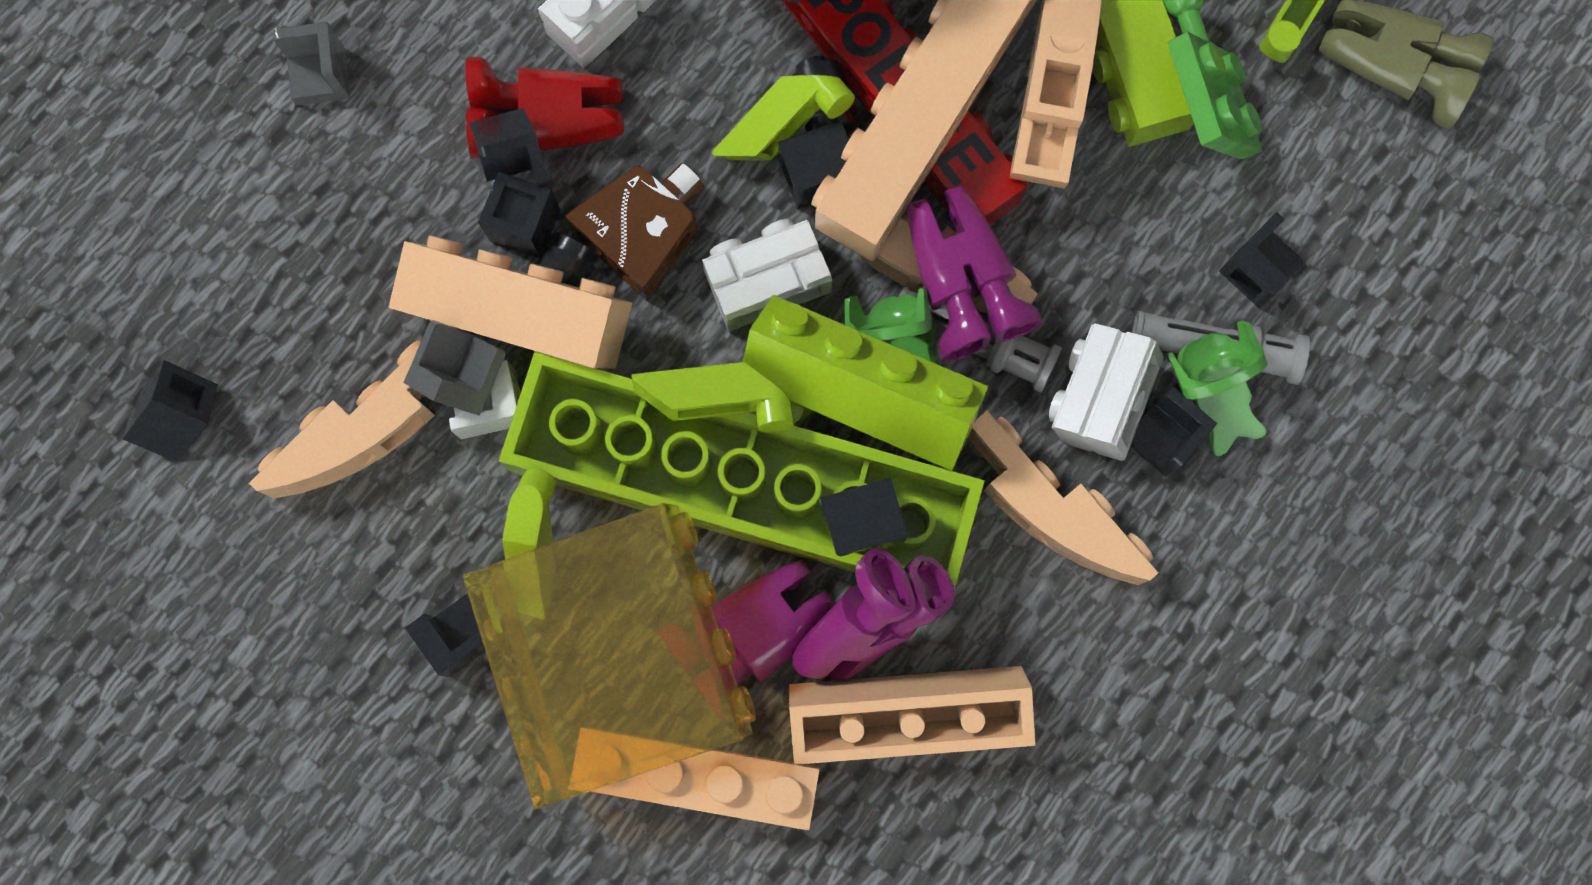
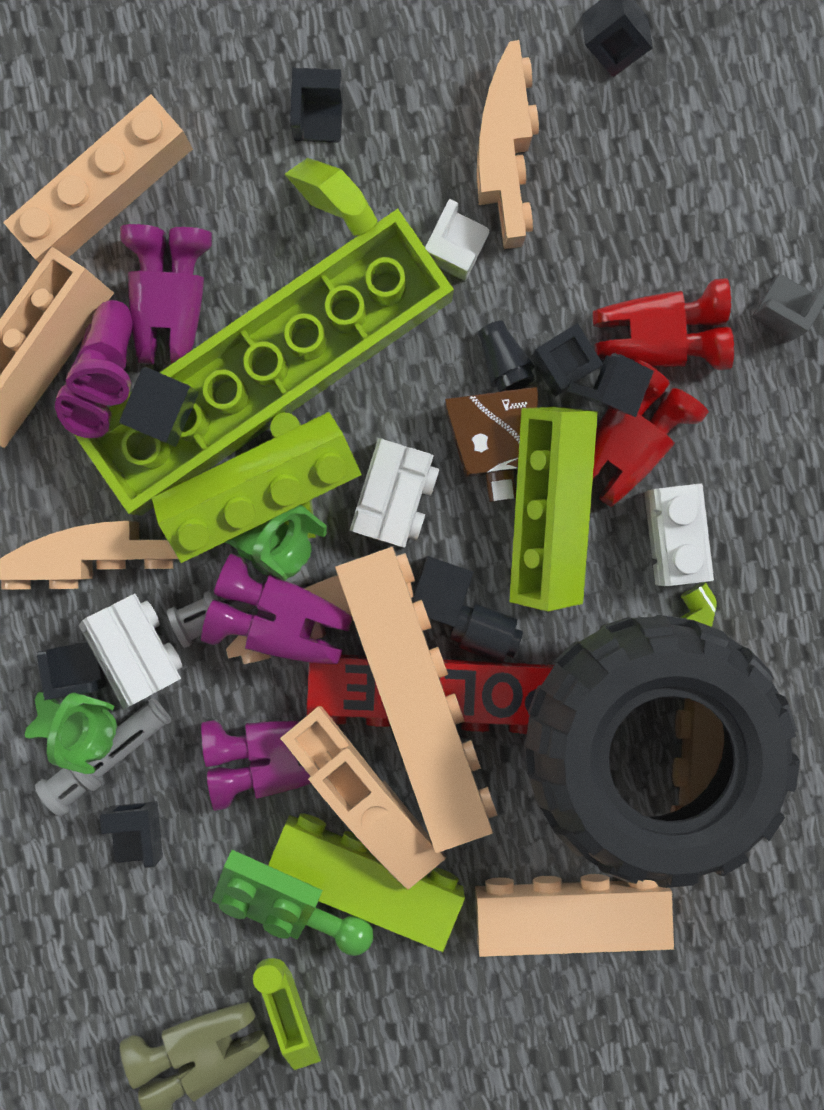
camera: 125 degrees right, 10 degrees up
(422, 157) = (661, 329): none -> red piece
(454, 367) = (486, 229): dark grey panel -> none
(509, 304) = (504, 303): light nougat brick -> none
(609, 654) = (207, 178): clear yellow panel -> none
(661, 117) = (552, 507): none -> lime brick
(716, 392) = (324, 383): lime piece -> none
(782, 114) = (491, 591): lime piece -> none
(1089, 202) = (271, 767): none -> magenta piece

